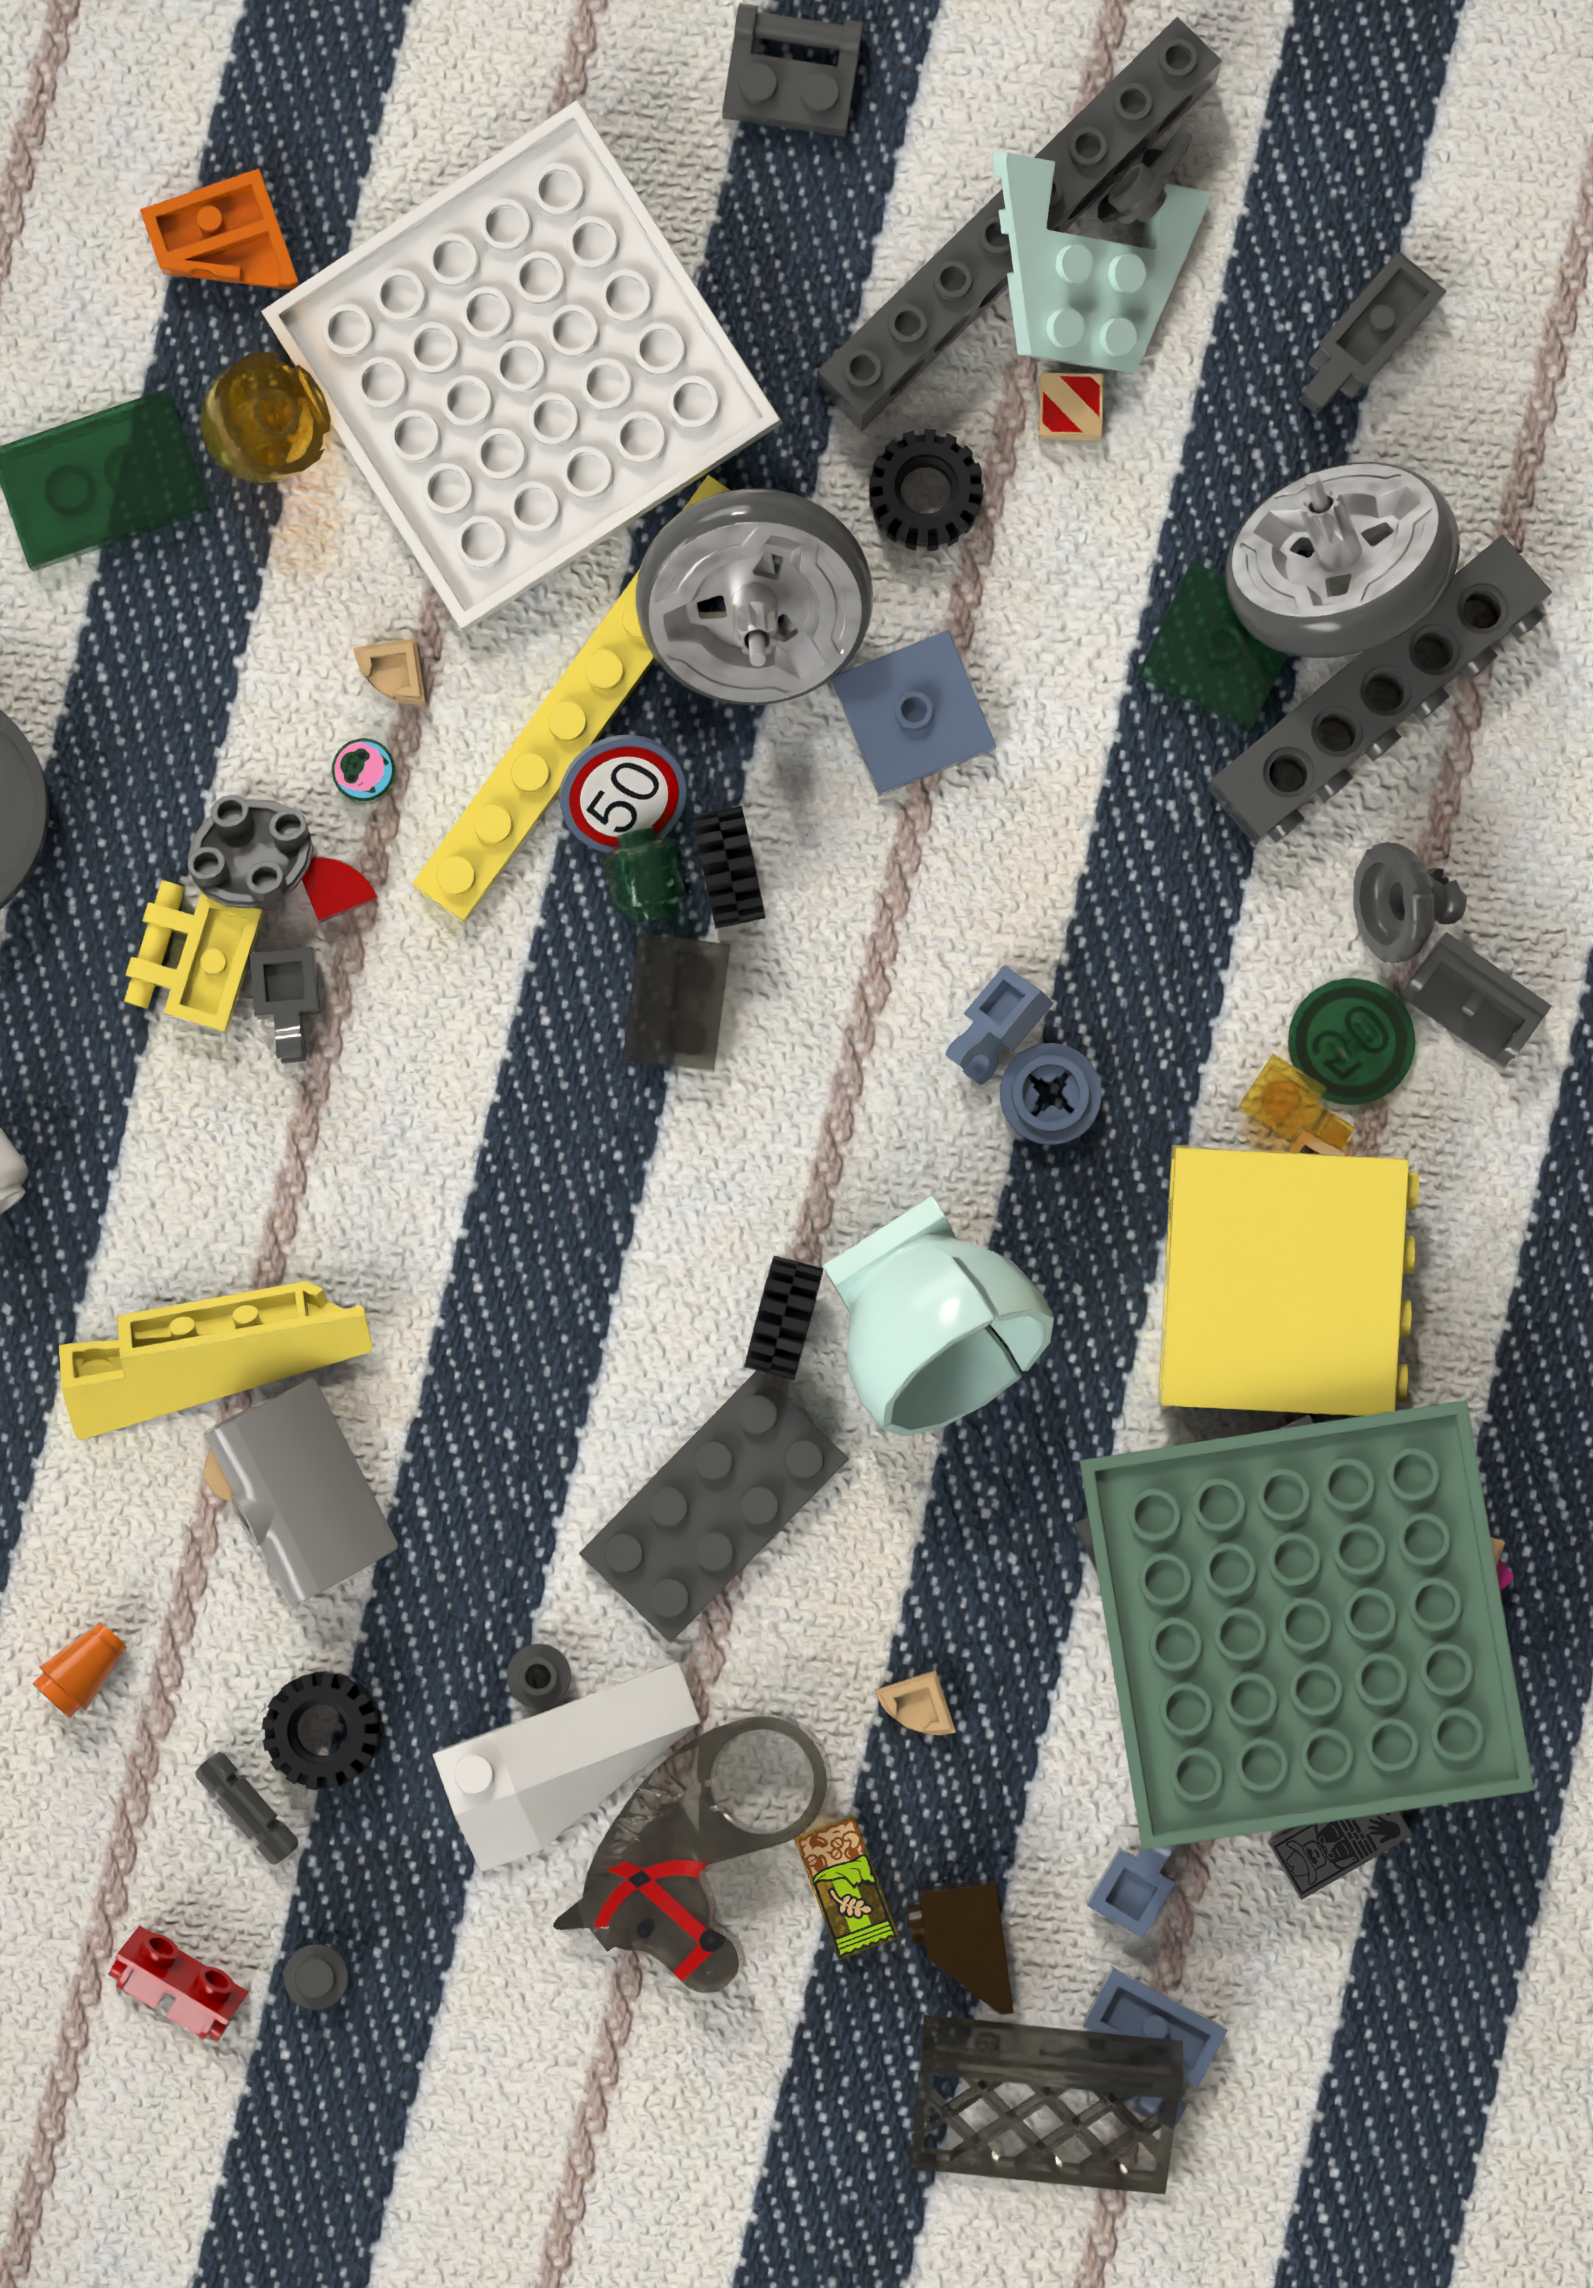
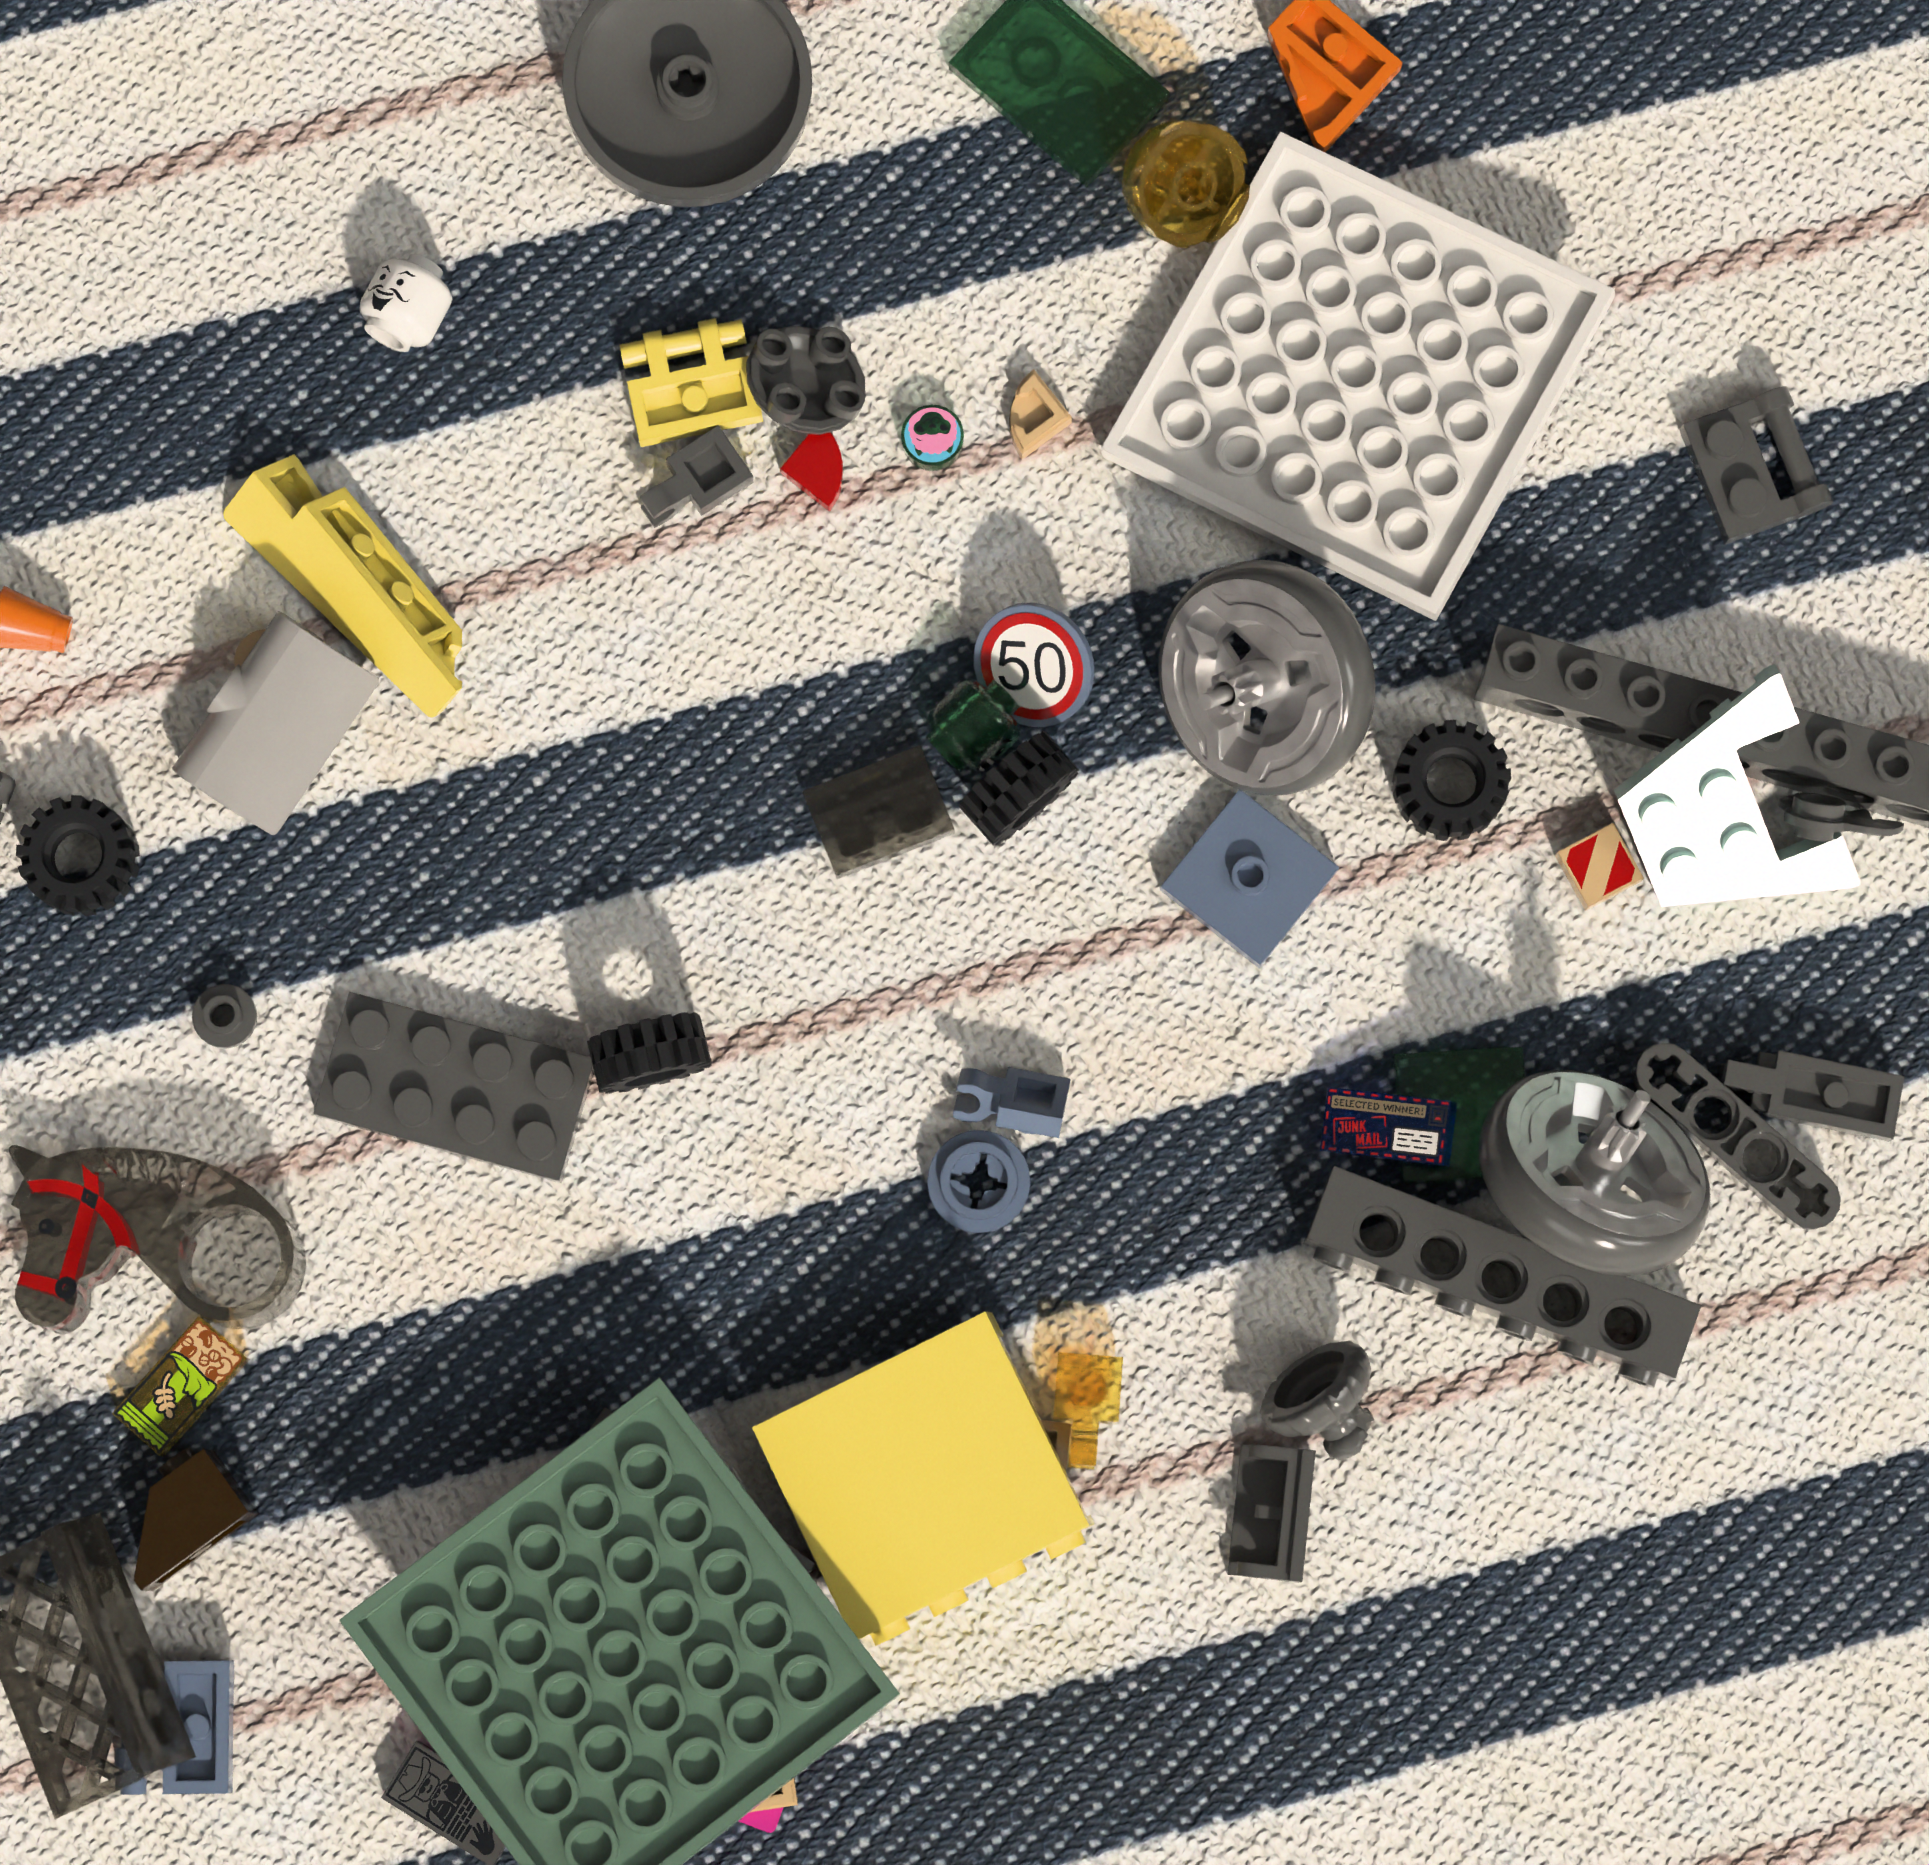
camera: 60 degrees right, 5 degrees down
(536, 762) = (1000, 576): light yellow plate -> none
(547, 1771) = (142, 1067): white wedge -> none
(918, 1704) = (376, 1362): tan tile -> none
(923, 1320) = (708, 1178): light aqua plate -> none
(1133, 1888) = (309, 1641): sand blue plate -> none
(1199, 714) = (1388, 1126): none -> tile
(1352, 1040) = (1176, 1425): clear green piece -> none
(1371, 429) = (1742, 1128): none -> dark grey beam

